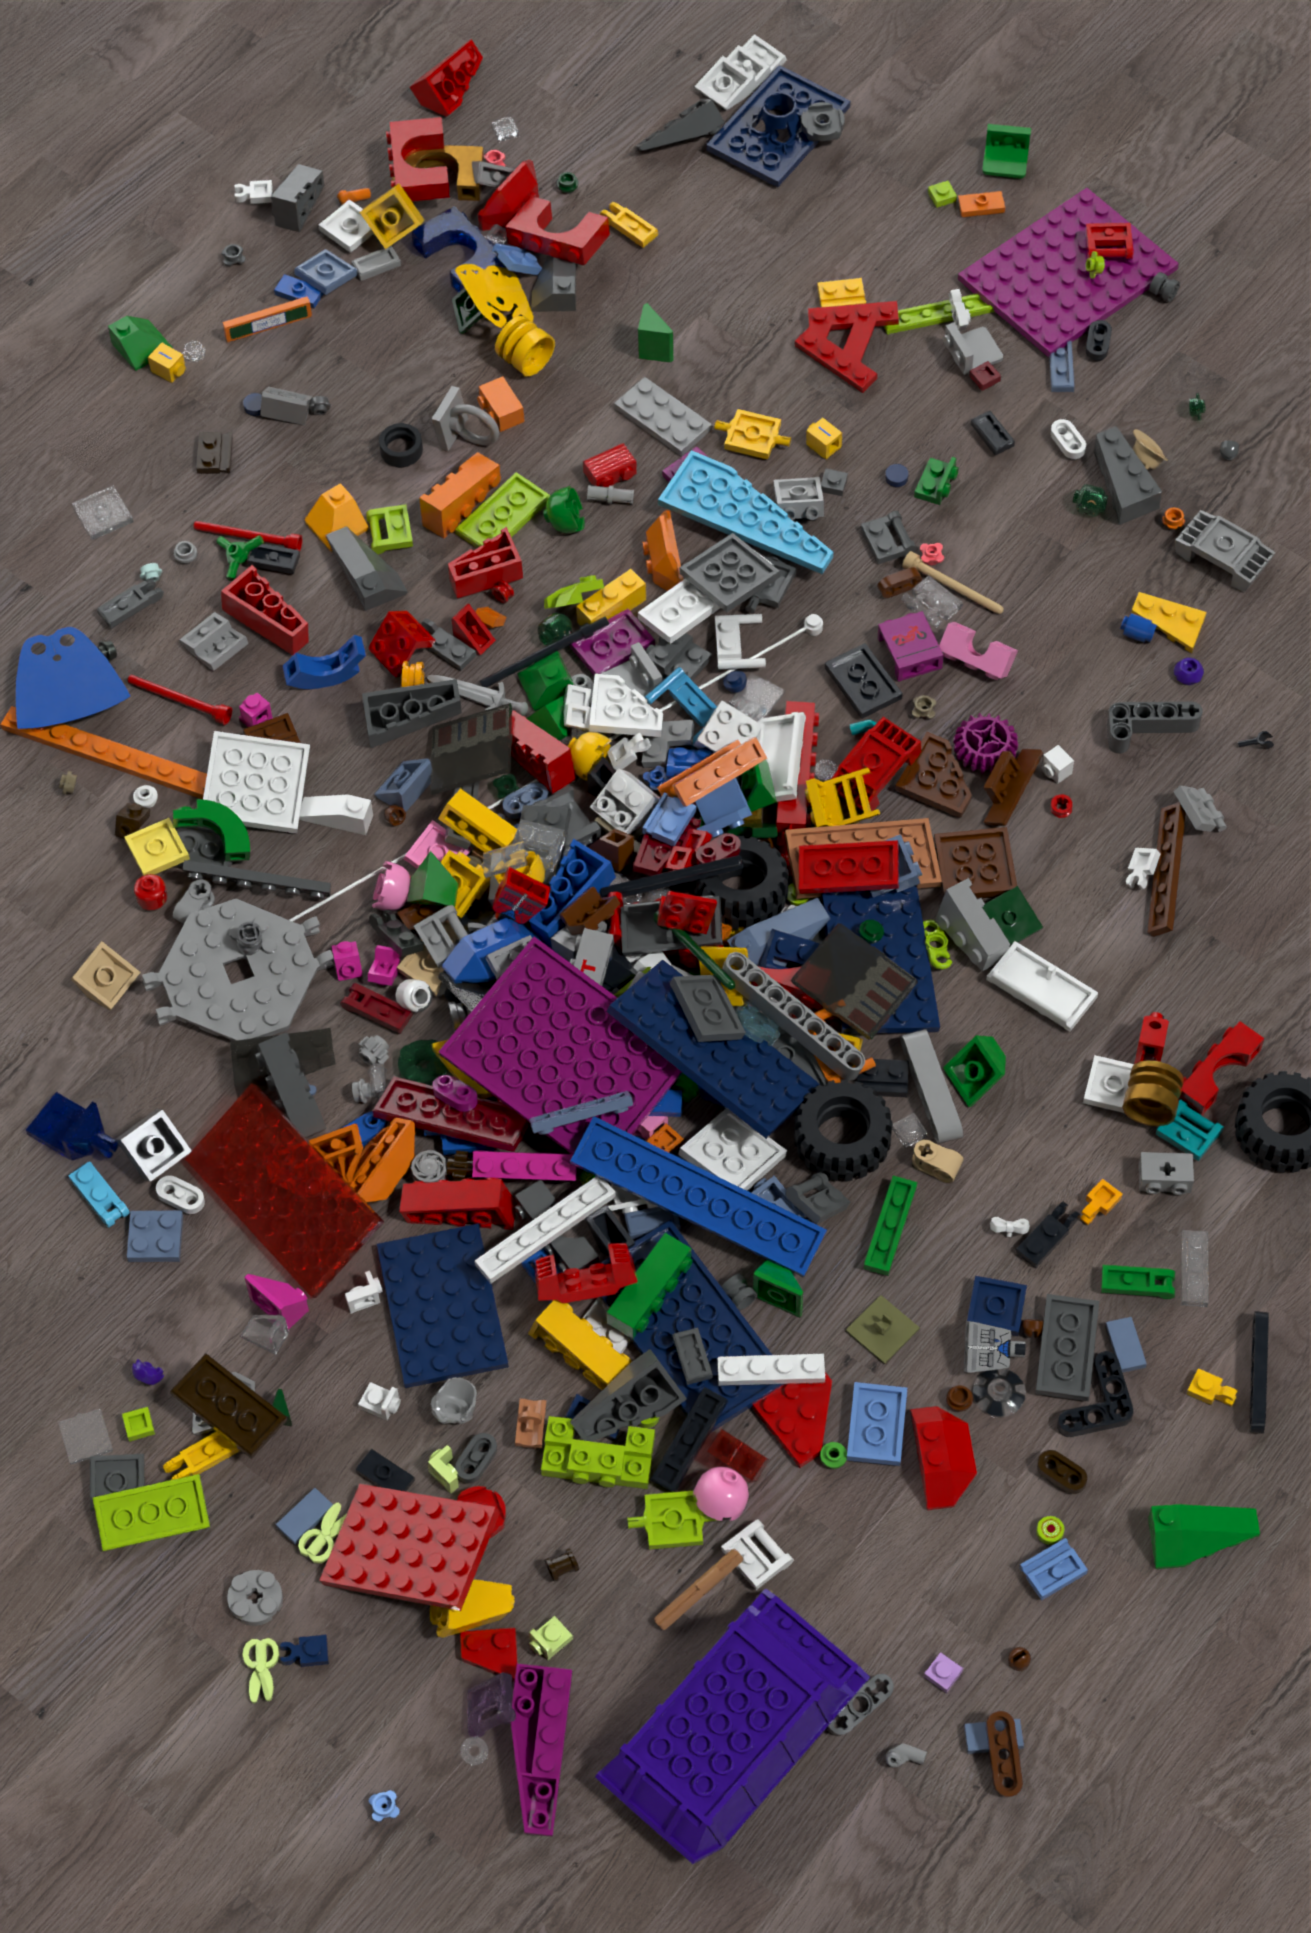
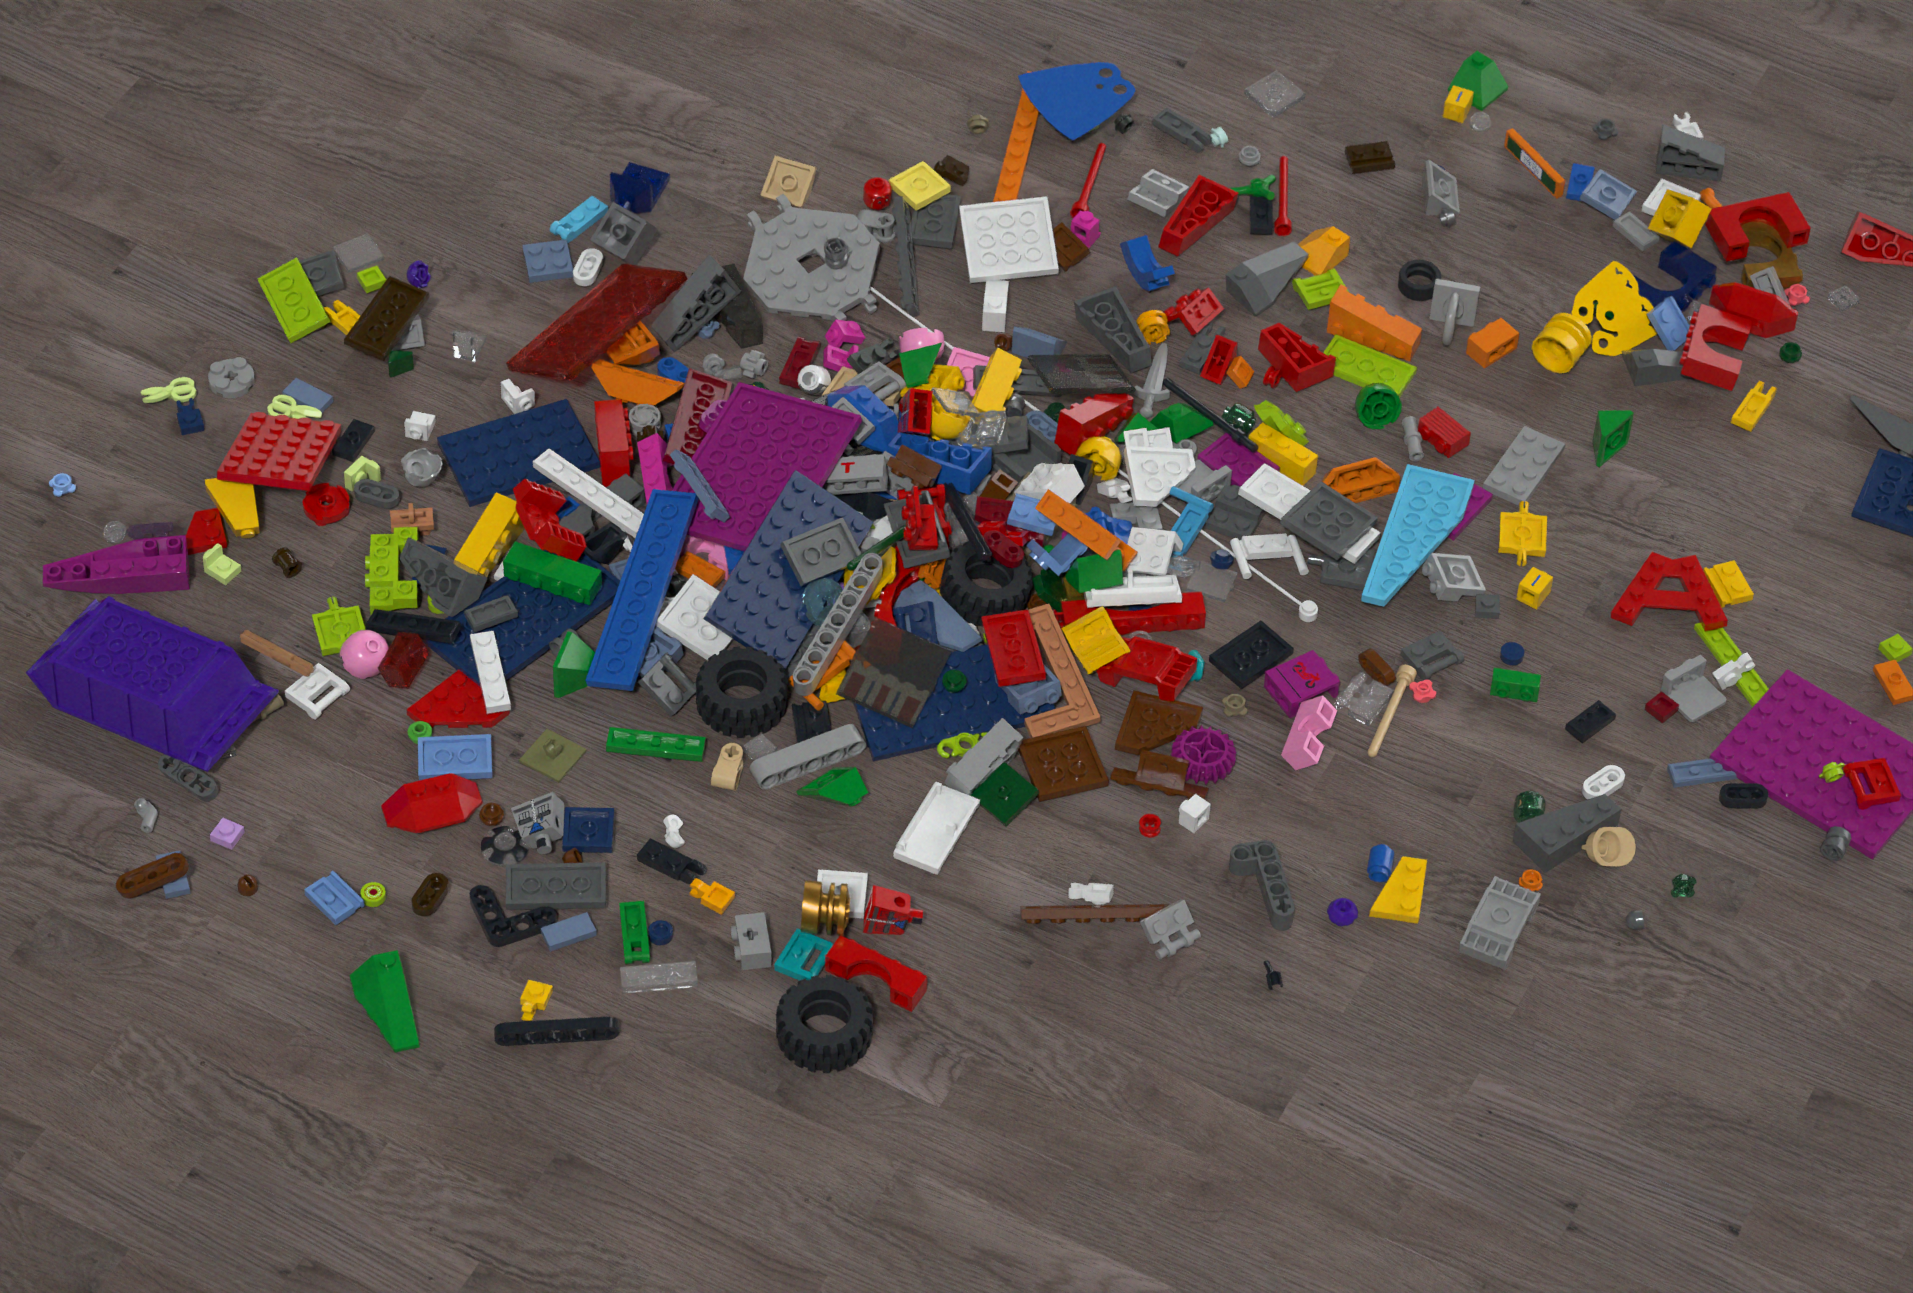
camera: 75 degrees right, 10 degrees down
(148, 801) = (979, 177): white plate -> none
(220, 820) = (950, 222): green arch -> none
(277, 1298) = (494, 338): dark pink slope -> none
(1137, 1256) = (660, 932): none -> dark blue tile

